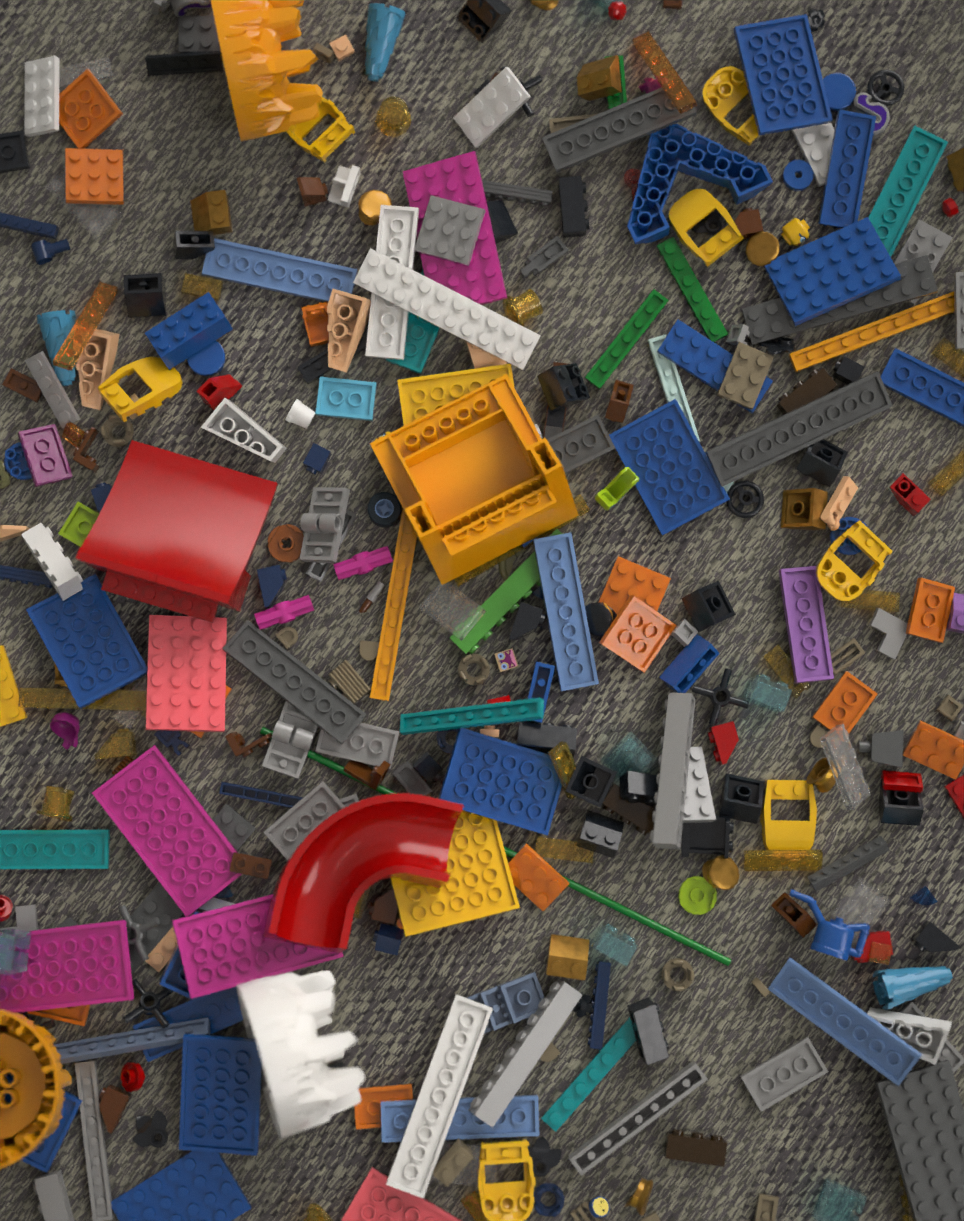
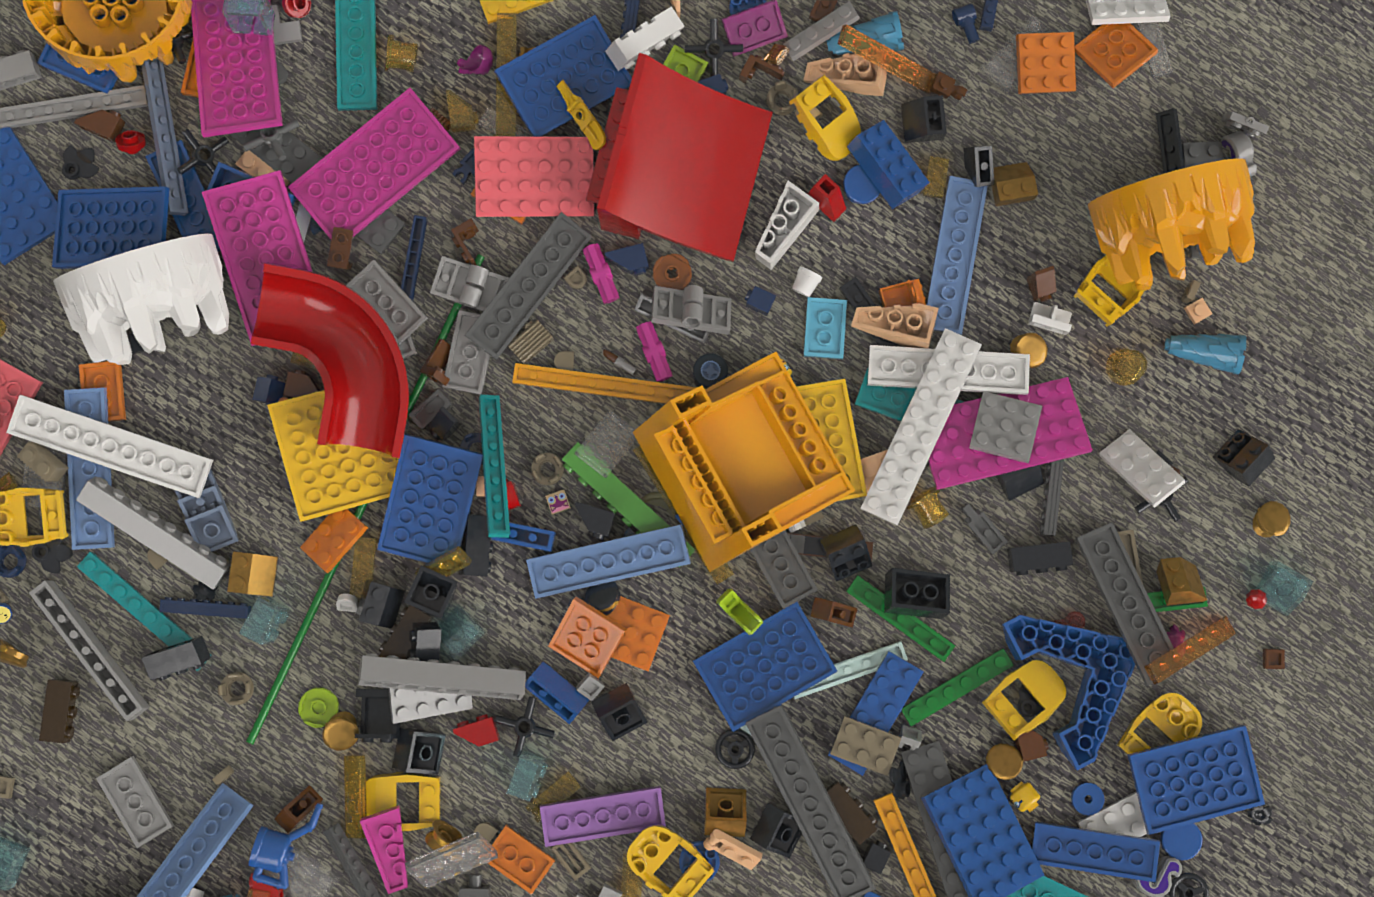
camera: 80 degrees right, 0 degrees up
(57, 495) = (713, 39): none -> black bar
(112, 274) = (945, 86): none -> reddish brown plate
(136, 618) = (588, 123): none -> yellow piece
(598, 865) = (347, 602): none -> white tile
(604, 321) = (917, 593): none -> black brick
(828, 829) = (386, 843): none -> dark pink wing

